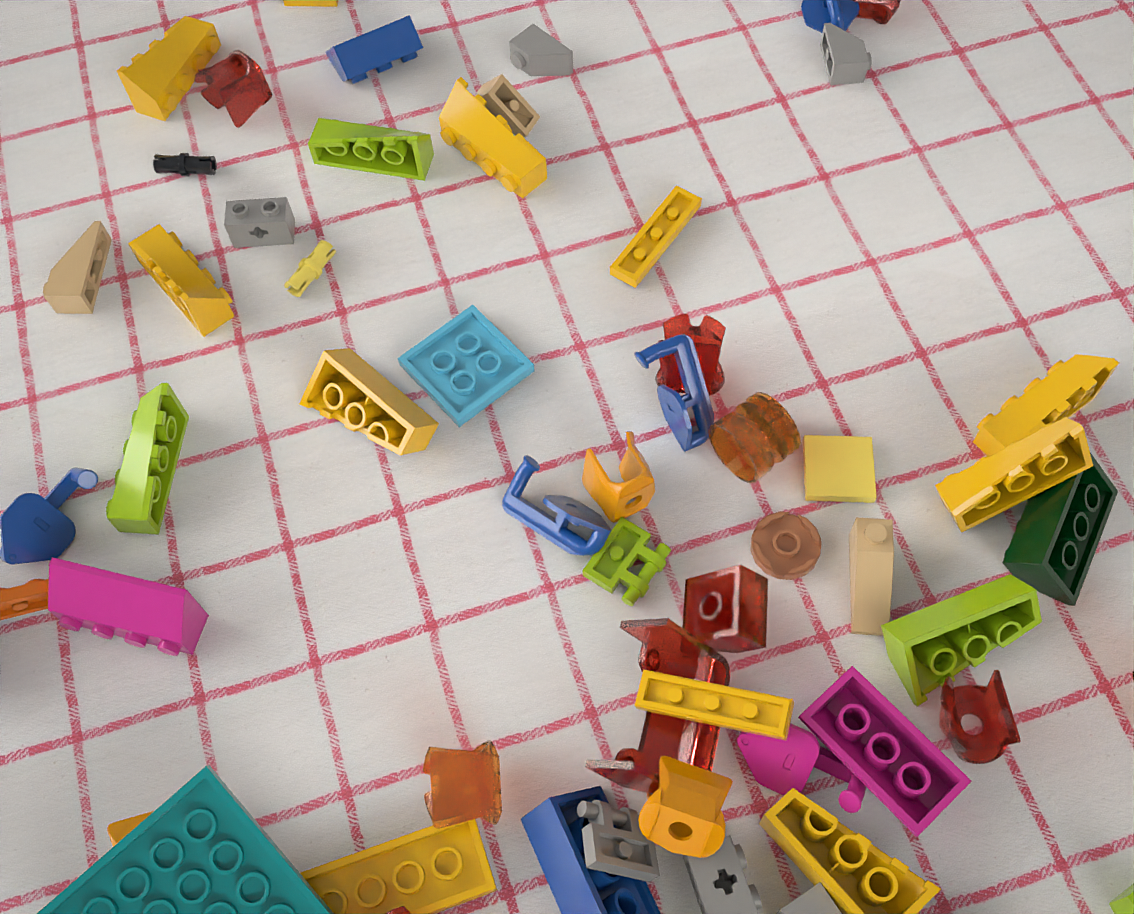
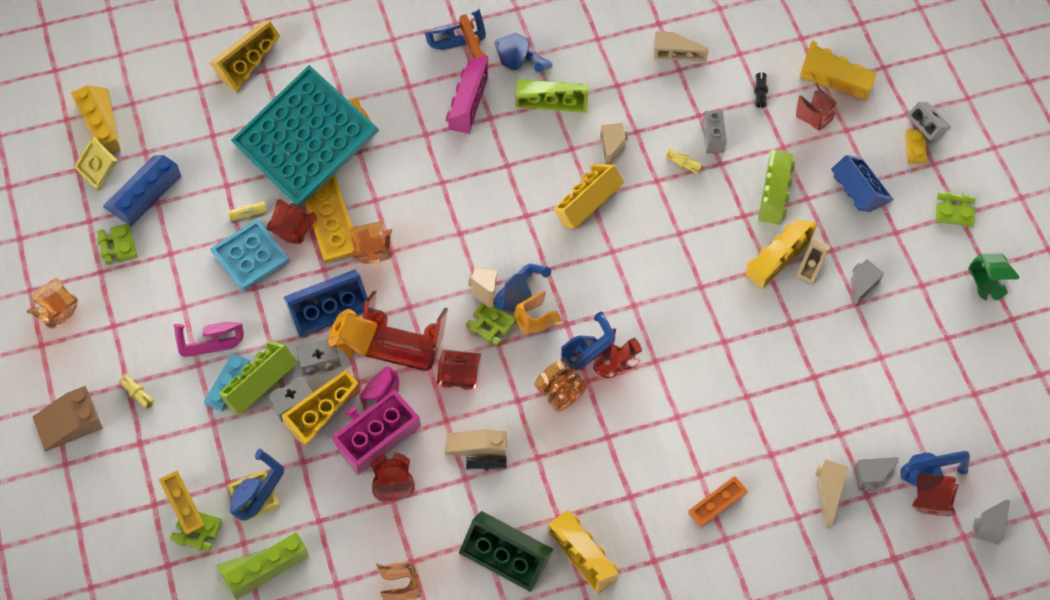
camera: 85 degrees right, 0 degrees up
(182, 280) = (668, 99): yellow wedge -> none
(261, 369) = (612, 140): none -> tan slope
(466, 365) = (616, 243): medium azure plate -> none
(558, 567) = (483, 285): none -> tan slope
(617, 849) = (335, 304): light grey plate -> none
(655, 236) = (713, 346): yellow plate -> none
(715, 704) = (402, 351): yellow tile -> none
(785, 545) = (499, 405): nougat tile -> none
(839, 468) = (547, 437): light yellow tile -> none
(877, 103) = (830, 487): none -> tan slope
(904, 563) = (486, 462): none -> black pin
(918, 235) = (717, 502): none -> orange plate
(958, 633) = (441, 481): lime wedge -> none
(1015, 473) = (531, 517): yellow wedge -> none

